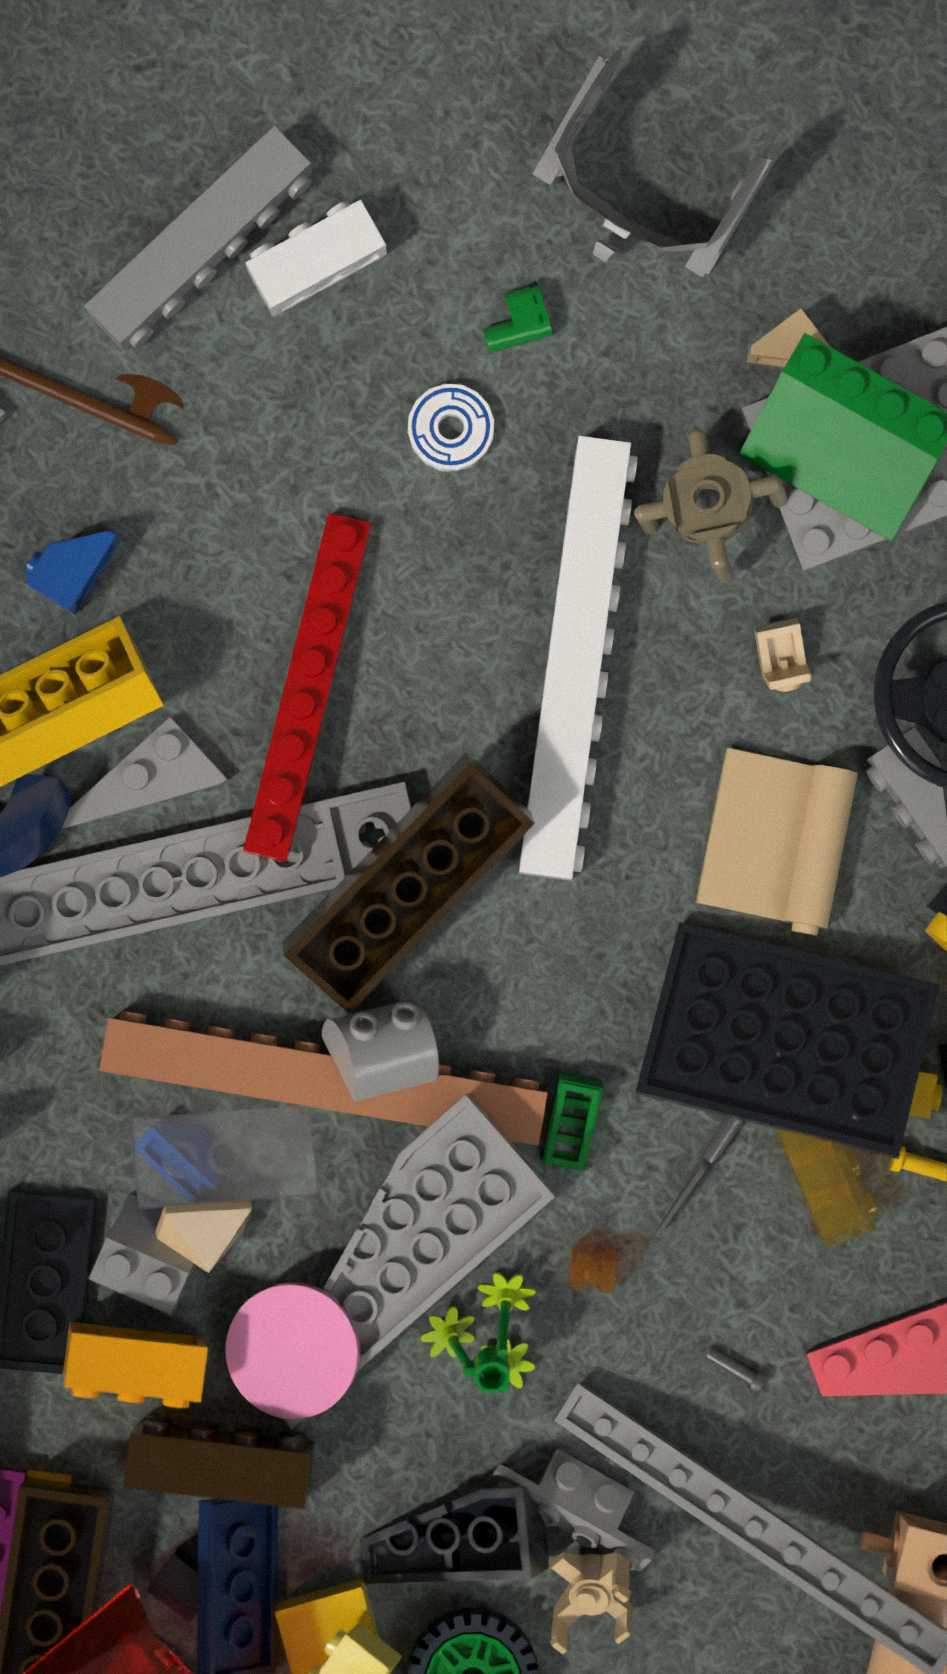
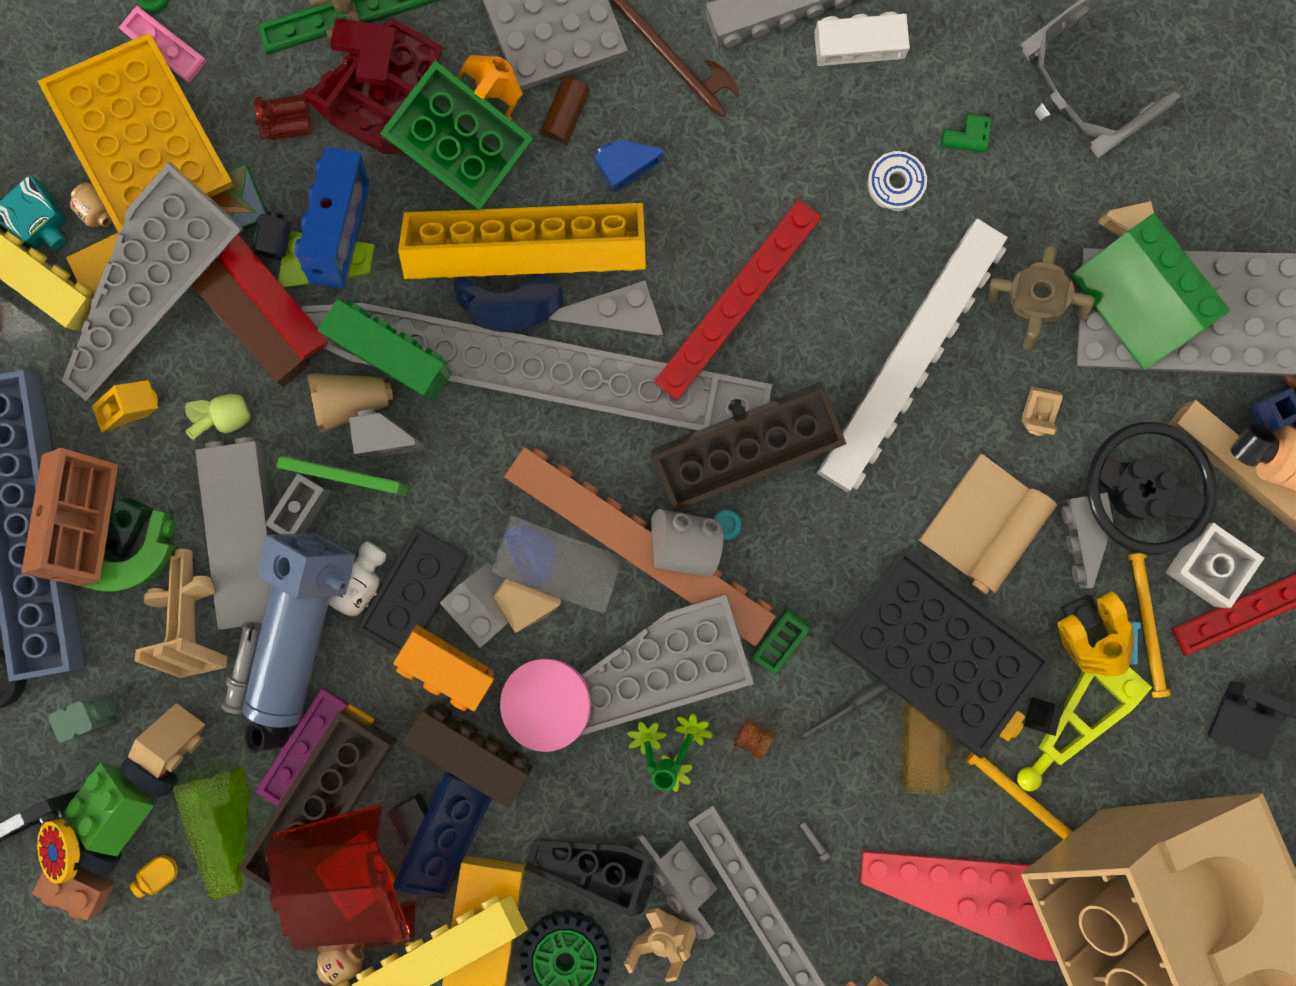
camera: 30 degrees right, 0 degrees up
(431, 995) = (730, 523): none -> teal tile

